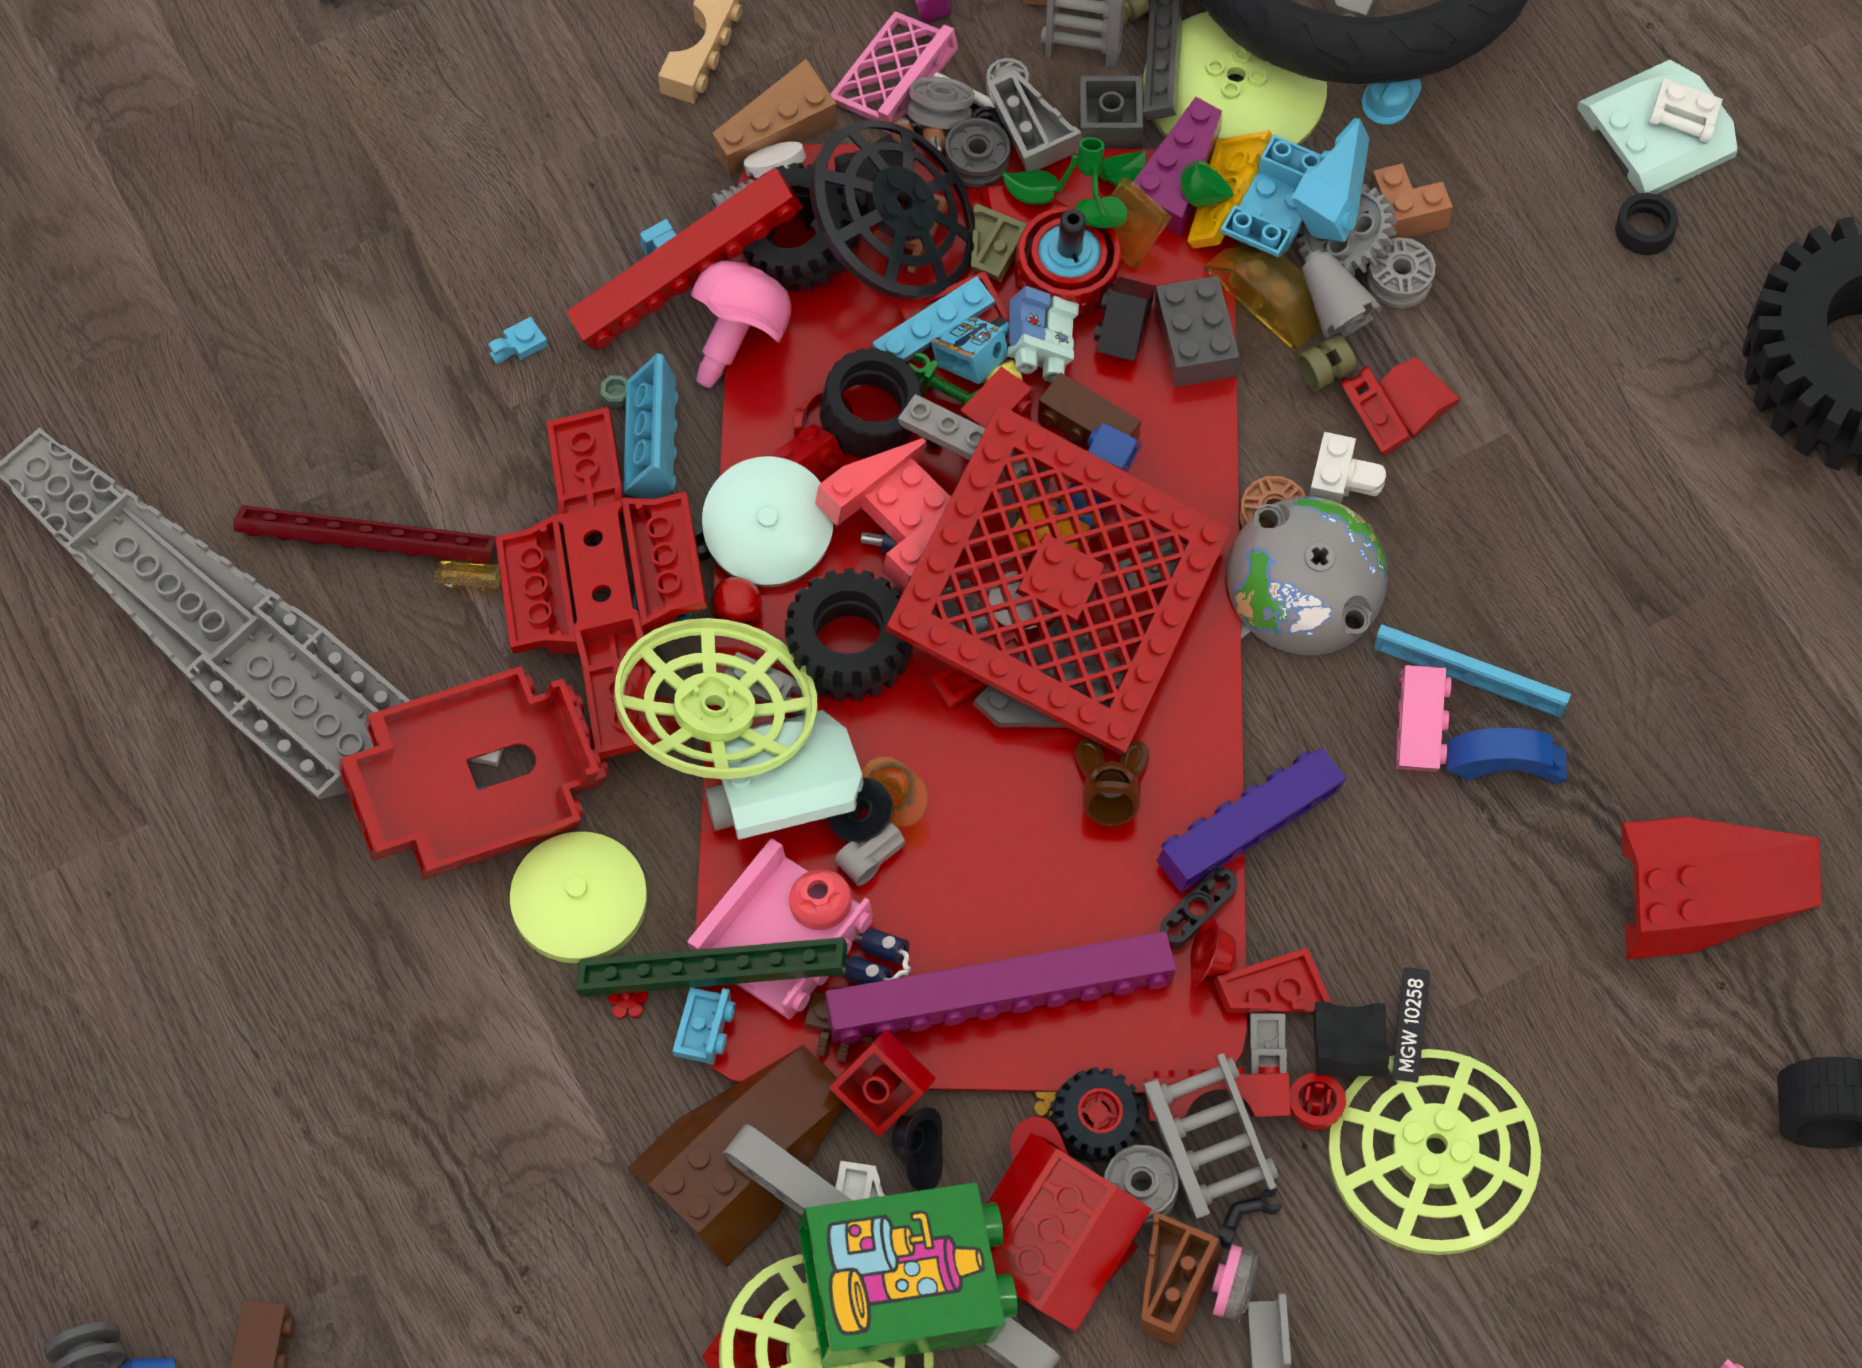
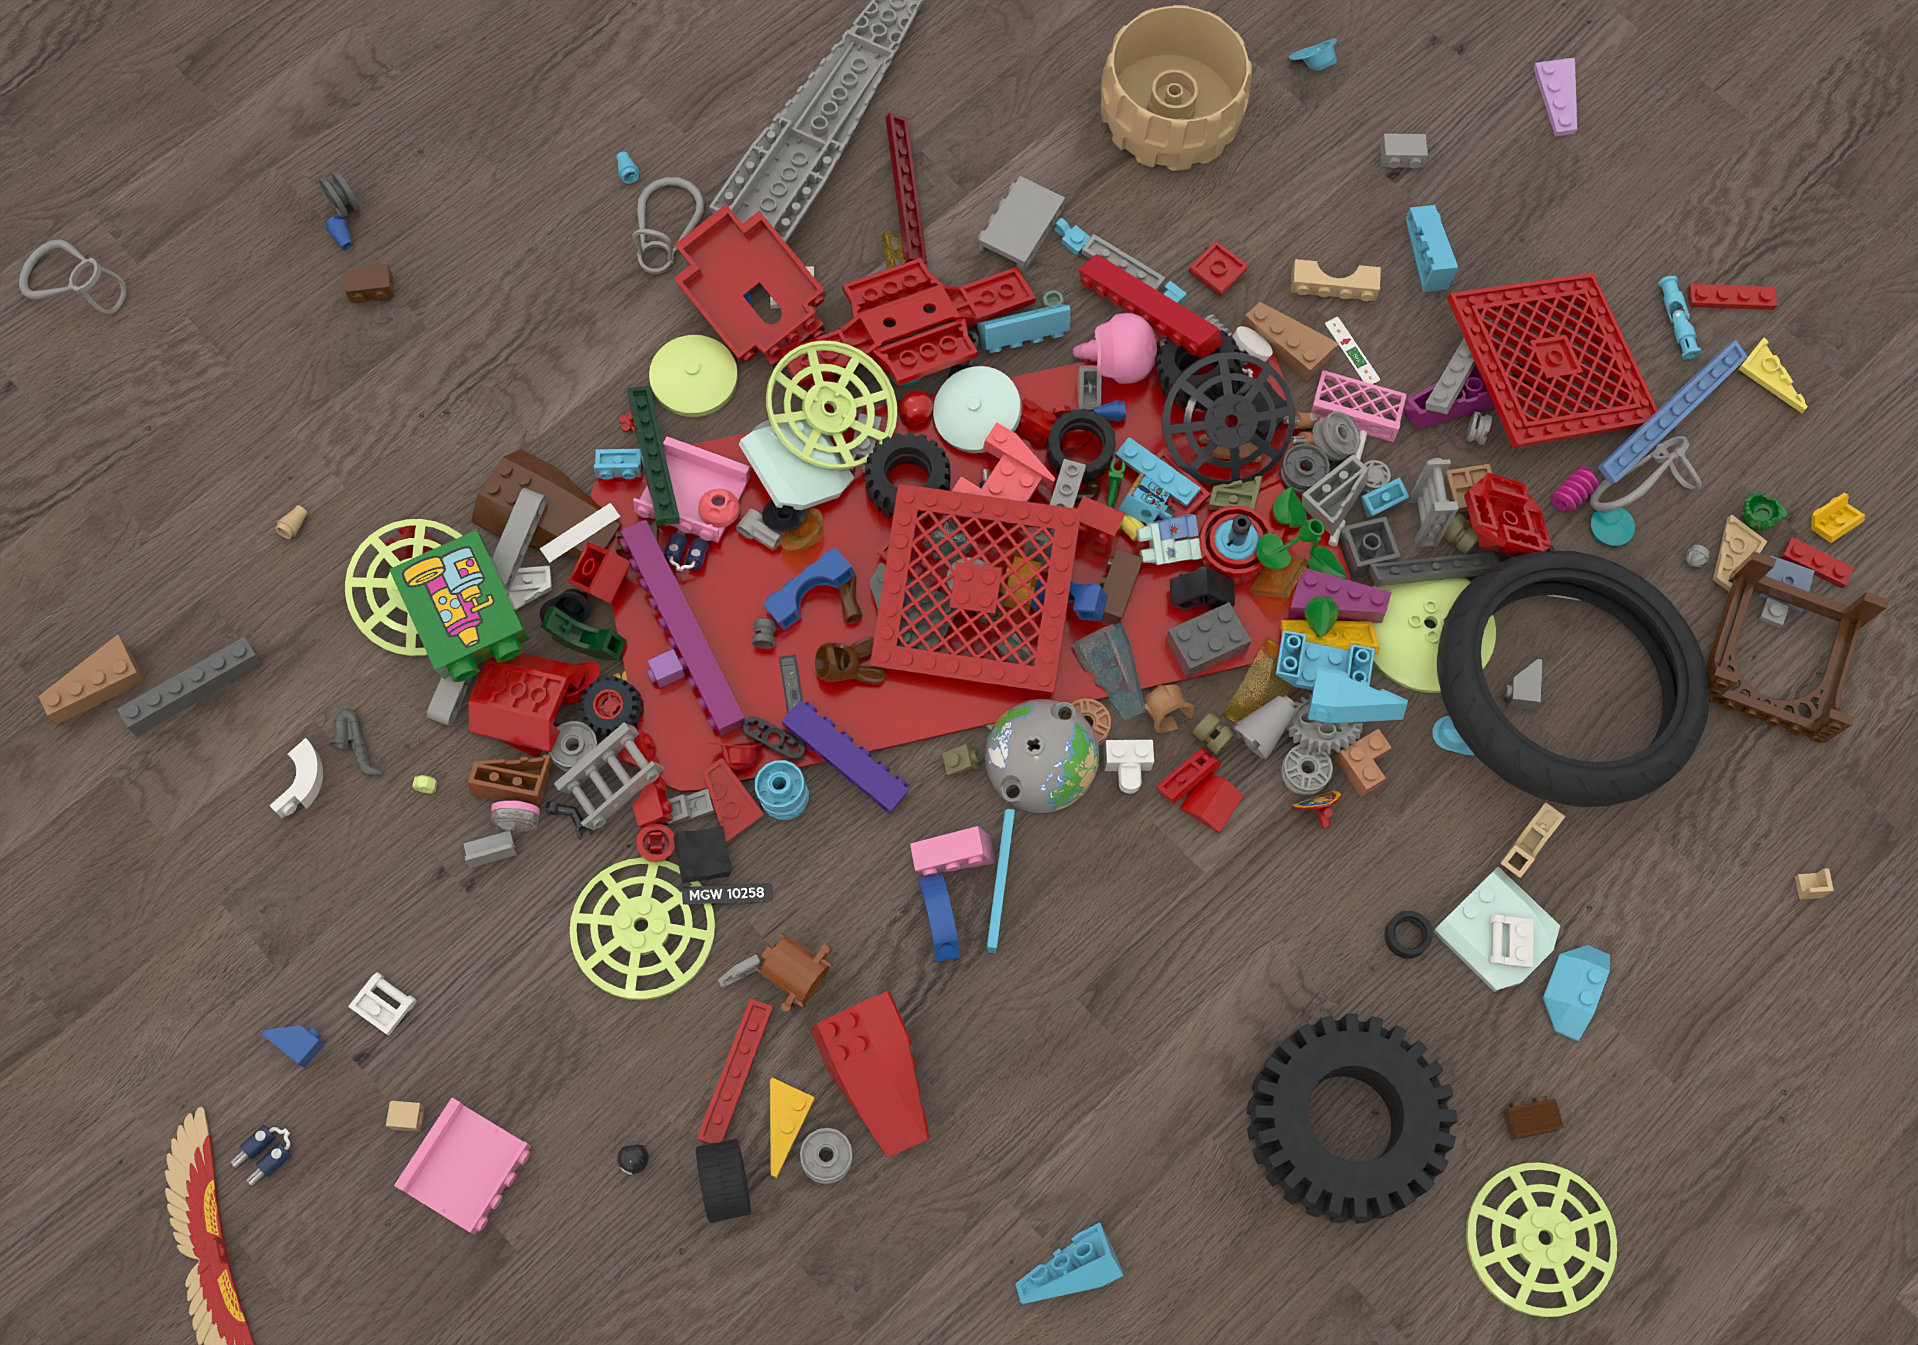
camera: 70 degrees right, 5 degrees up
(188, 913) = (627, 169): none -> medium azure cone
(346, 884) = (641, 211): none -> light grey animal
(347, 133) = (1175, 87): none -> tan wheel
(476, 396) = (1022, 222): none -> light grey panel
(551, 312) = (1124, 261): none -> light grey plate
(632, 175) = (1218, 268): none -> red plate
(775, 375) = (1088, 387): none -> light grey slope
(805, 1100) = (579, 532): none -> white sticker
(815, 55) = (1352, 351): none -> white sticker
(819, 357) = (1112, 411): none -> blue cone
(975, 1130) = (581, 638): none -> dark green arch
(994, 762) = (851, 610): none -> reddish brown plant
(1003, 841) = (829, 570): none -> blue arch
(1028, 879) = (764, 633): none -> dark grey wheel
(1045, 75) = (1384, 497): none -> medium azure slope
(1056, 1027) = (665, 669): none -> medium lavender brick
(1120, 869) = (790, 681): none -> sticker
(1196, 456) = (1112, 664): none -> clear light blue wedge
(1273, 407) = (1163, 701): none -> medium nougat helmet
(1286, 678) = (962, 760): none -> olive bracket
(1286, 892) = (782, 790): none -> medium azure wheel
(1454, 264) = (1321, 803): none -> shield
(1528, 1029) = (740, 971): none -> light grey tile
(1549, 952) = (795, 970): none -> dark orange container
(1554, 57) = (1532, 839): none -> tan arch
(1672, 1069) = (735, 1072): none -> red plate
(1743, 1017) = (787, 1114): none -> yellow wing
(1755, 64) = (1576, 989): none -> medium azure wedge
(1770, 1227) = (633, 1159): none -> black piece
(1819, 960) = (824, 1140): none -> light grey wheel

